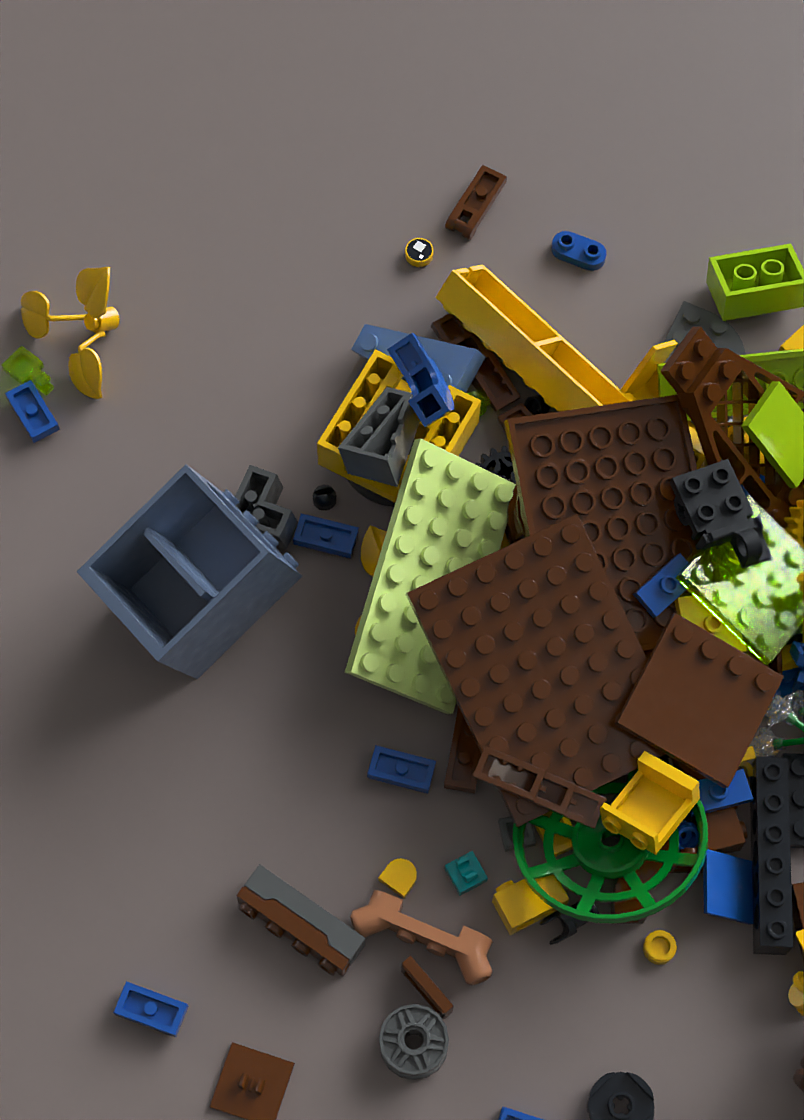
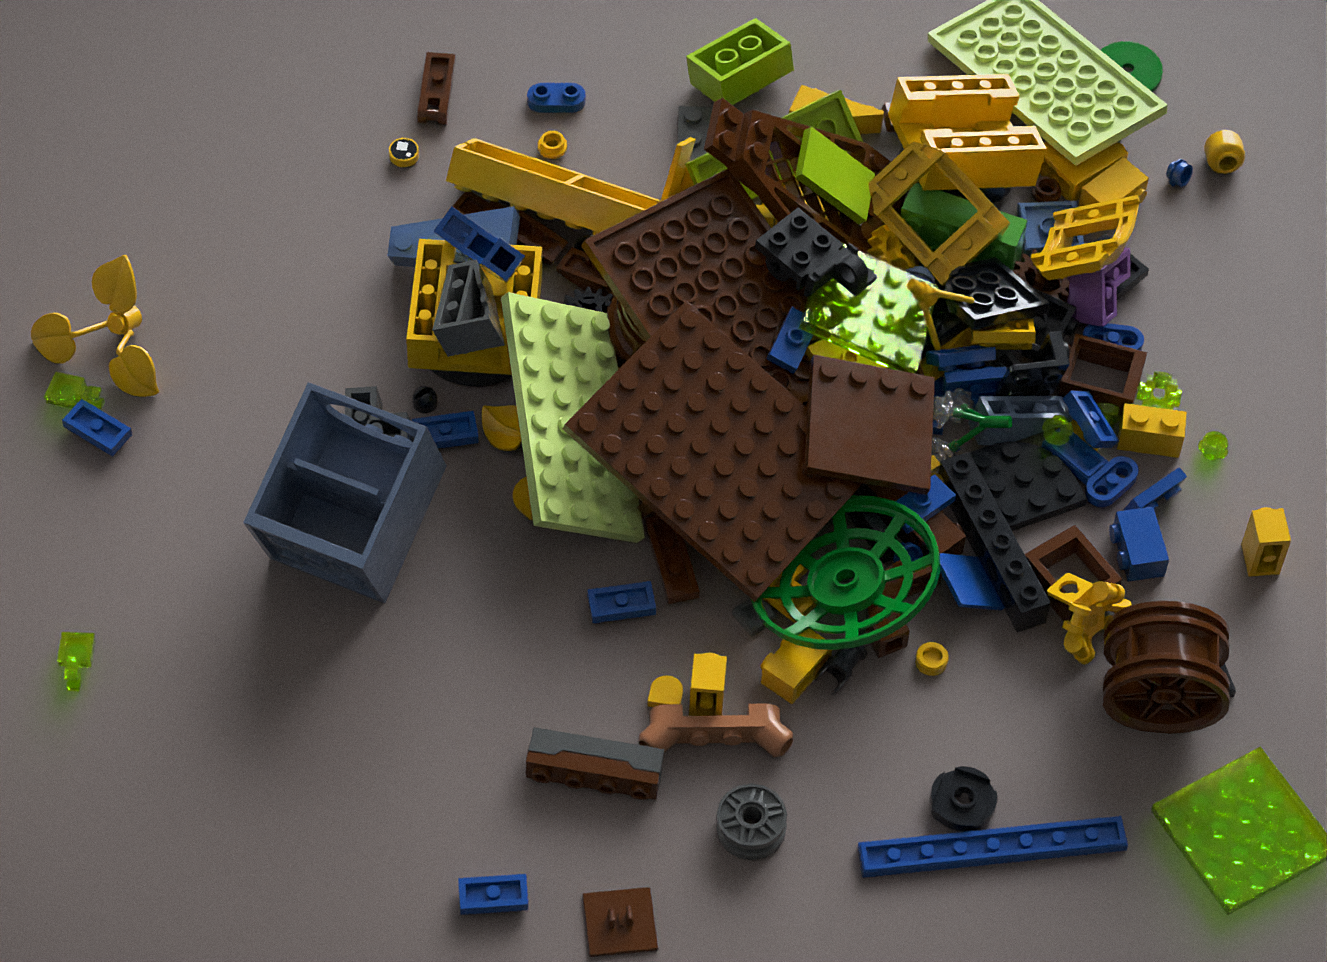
camera: 25 degrees left, 10 degrees down
(426, 987) = (737, 770): reddish brown tile -> none
(433, 892) = (707, 684): none -> yellow brick
(466, 873) = (735, 665): teal tile -> none
(539, 787) = (763, 551): reddish brown slope -> none
(555, 289) = (549, 139): none -> yellow plate
(651, 804) = (869, 526): yellow panel -> none

